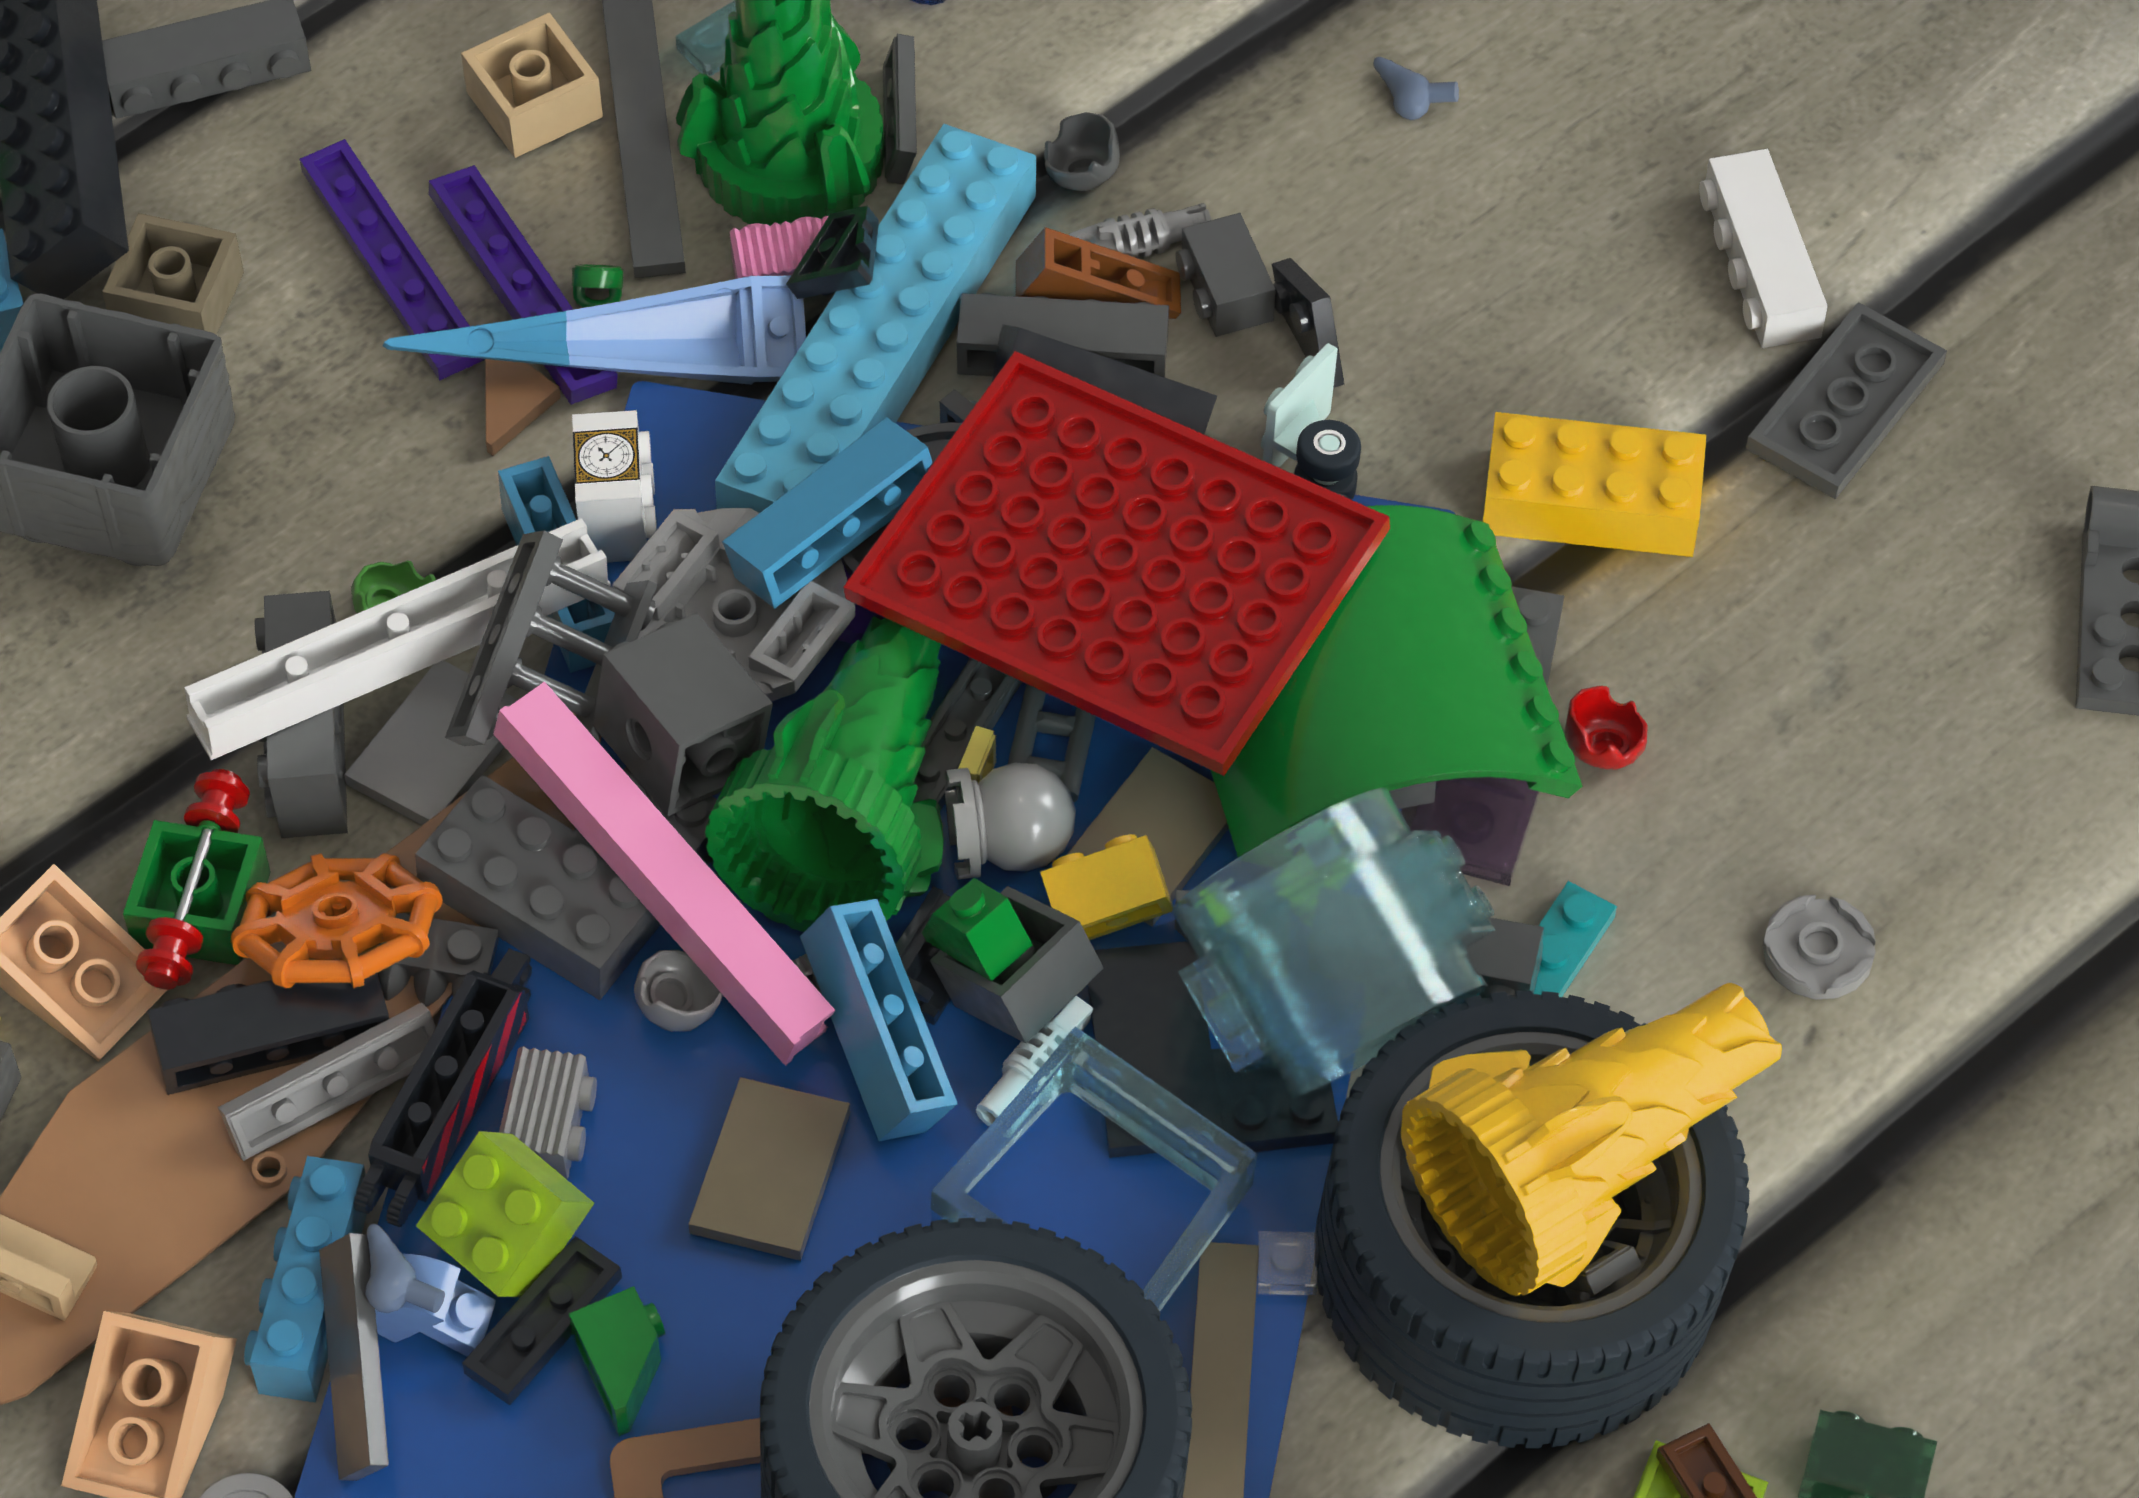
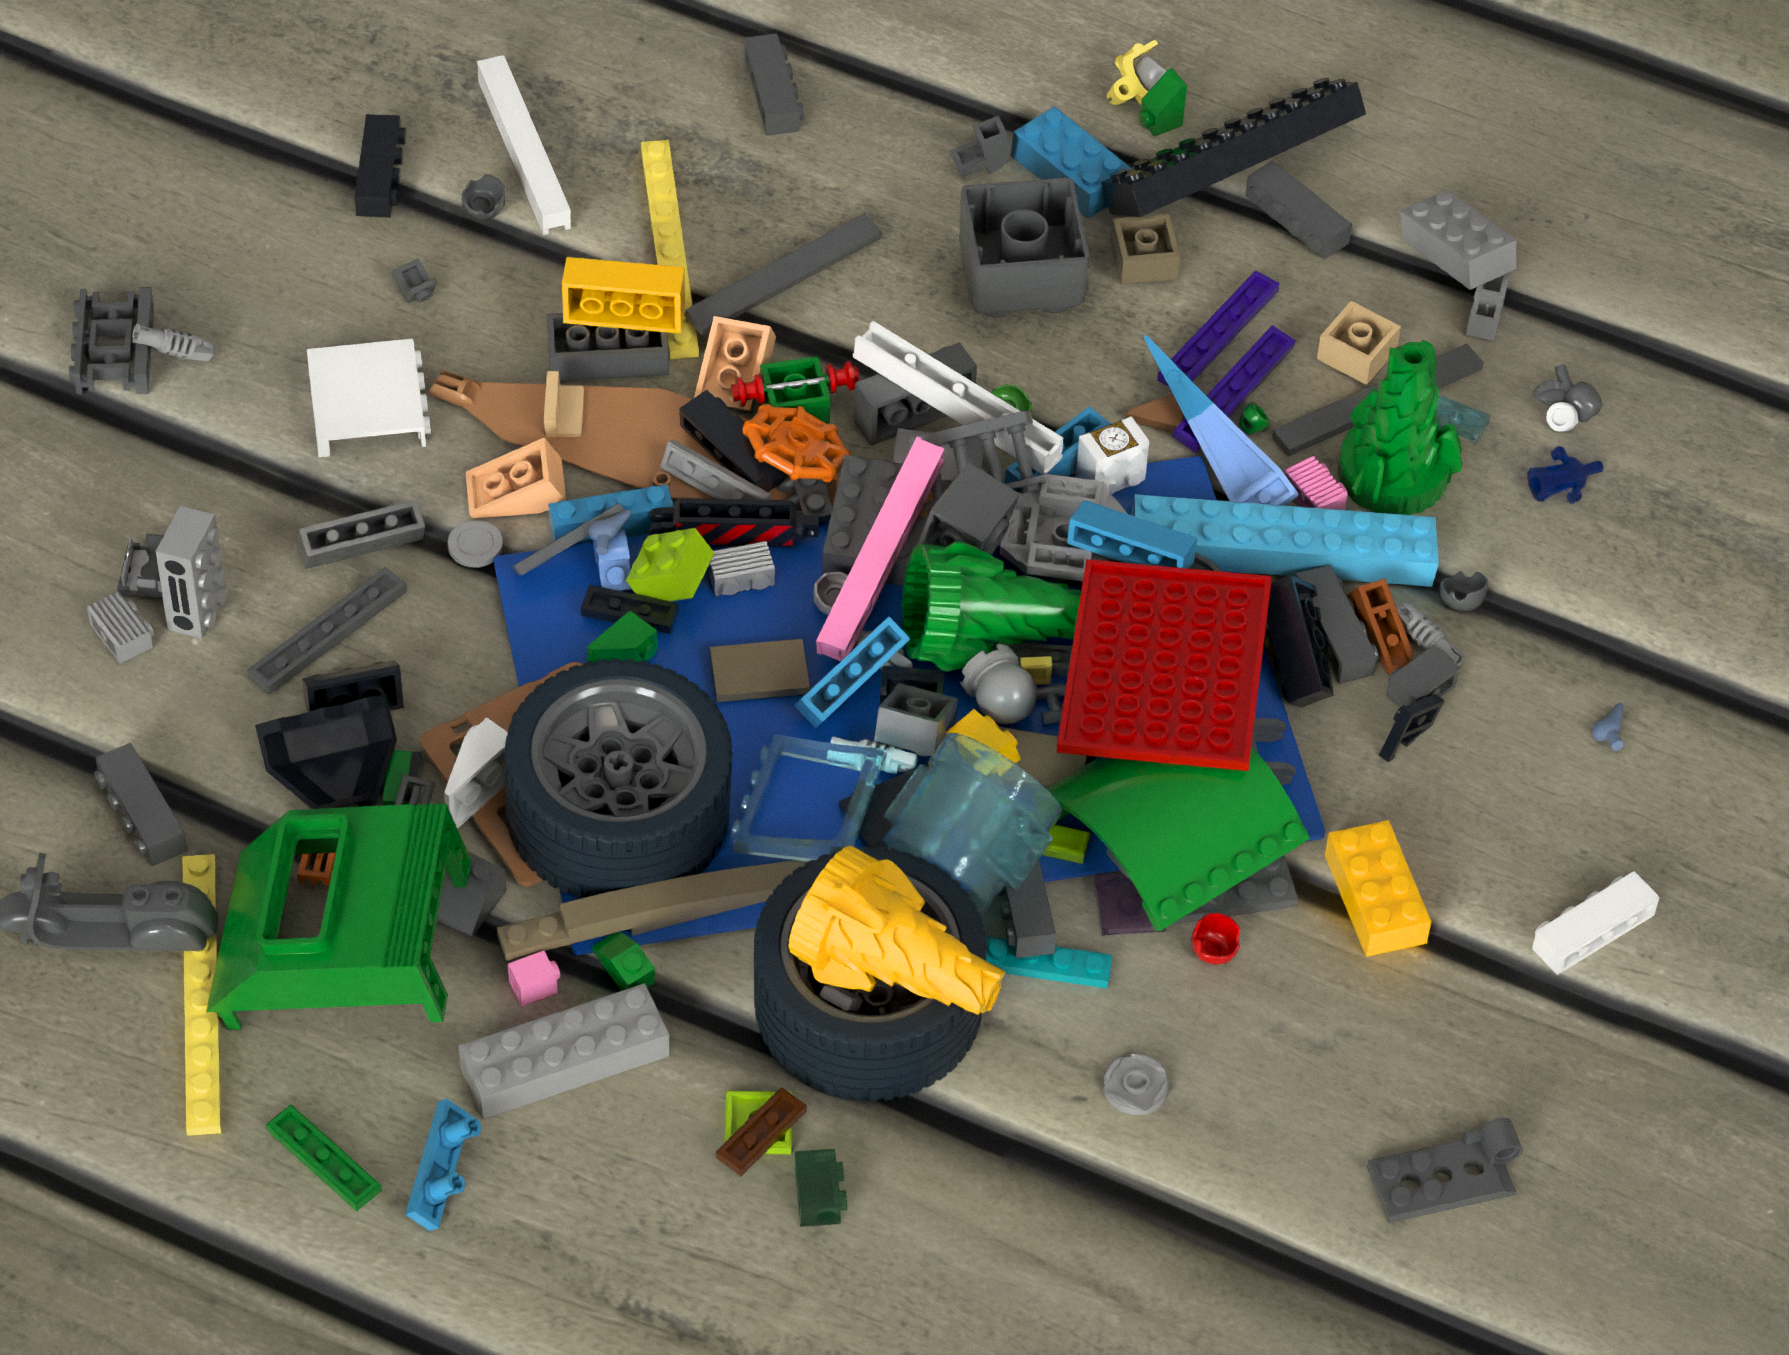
camera: 65 degrees right, 5 degrees down
(839, 255) = (1314, 497): black wing -> none
(899, 109) = (1450, 500): dark grey tile -> none
(978, 930) = (914, 683): green slope -> none
(1298, 429) = (1329, 734): plate -> none
(1846, 400) = (1512, 993): dark grey plate -> none

